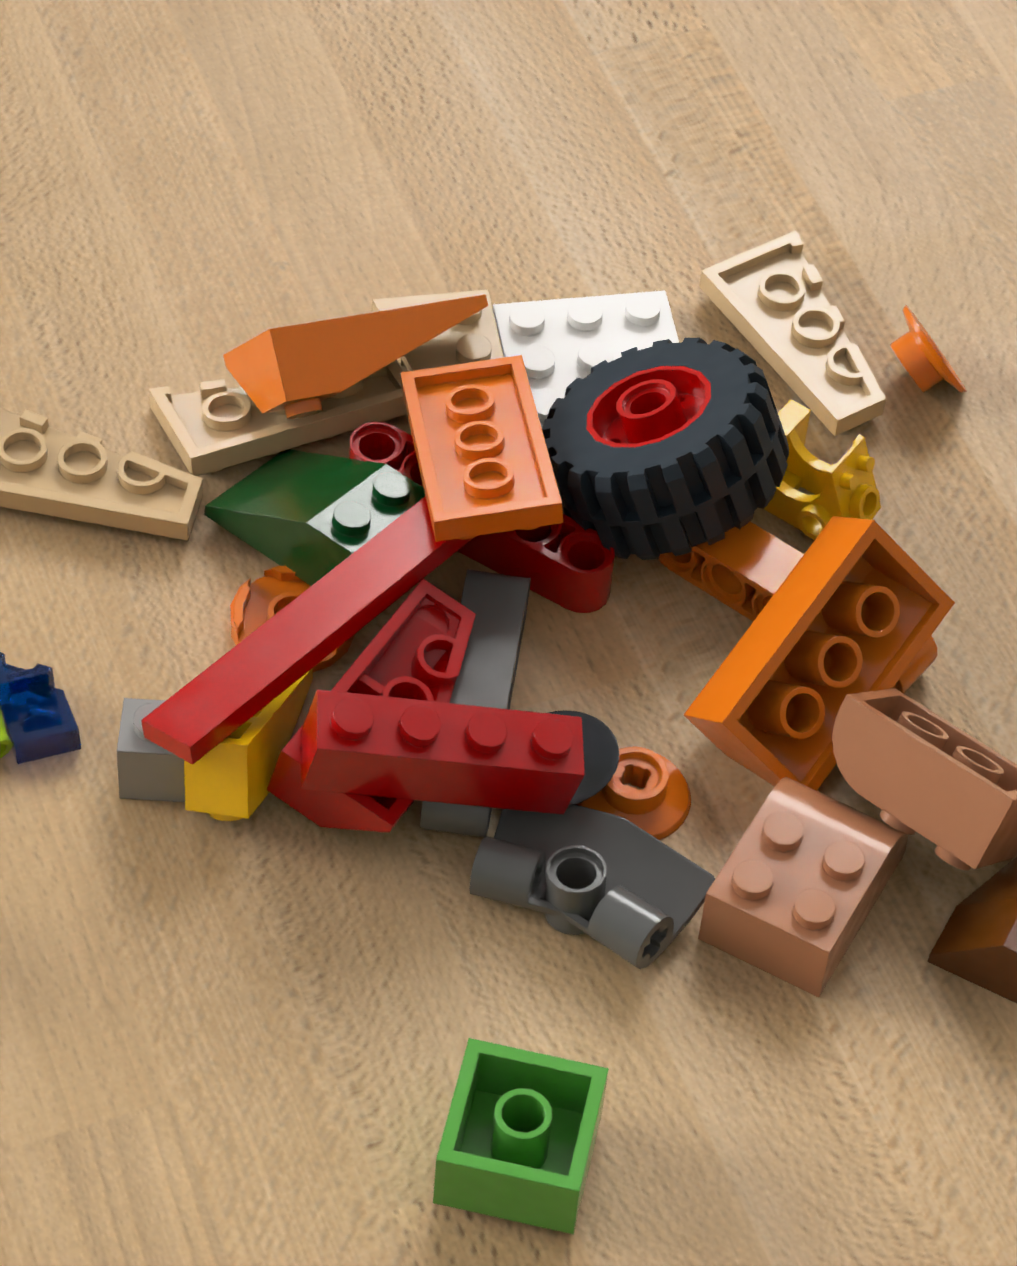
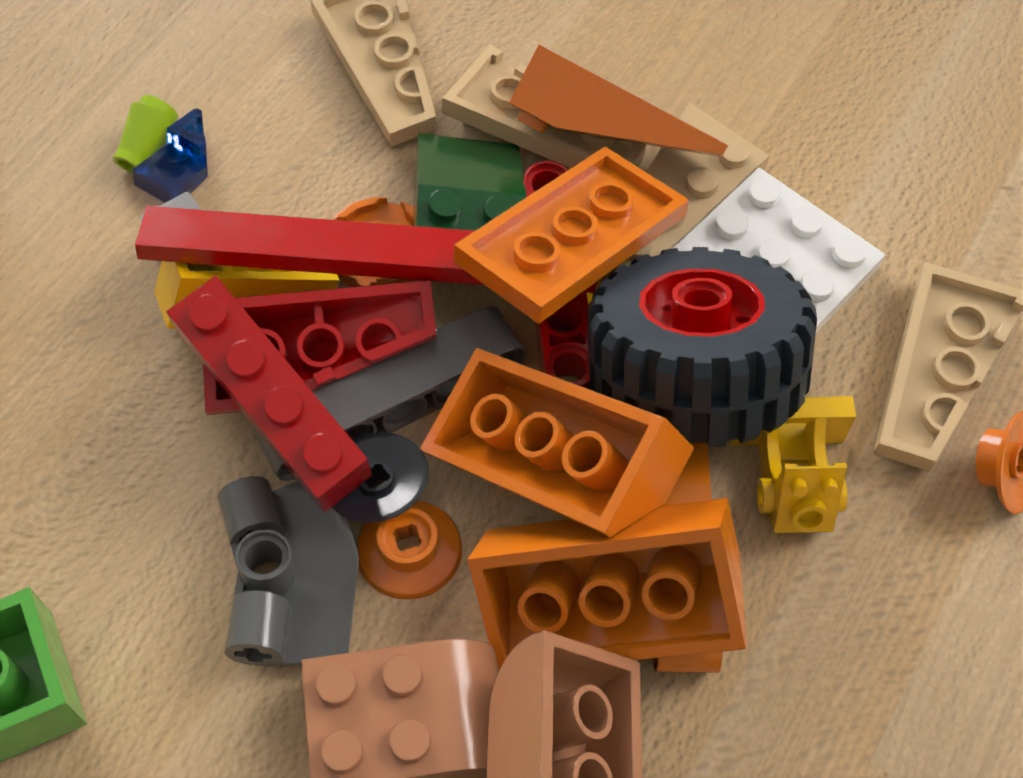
camera: 55 degrees right, 10 degrees up
(662, 599) = (558, 444): none -> orange slope

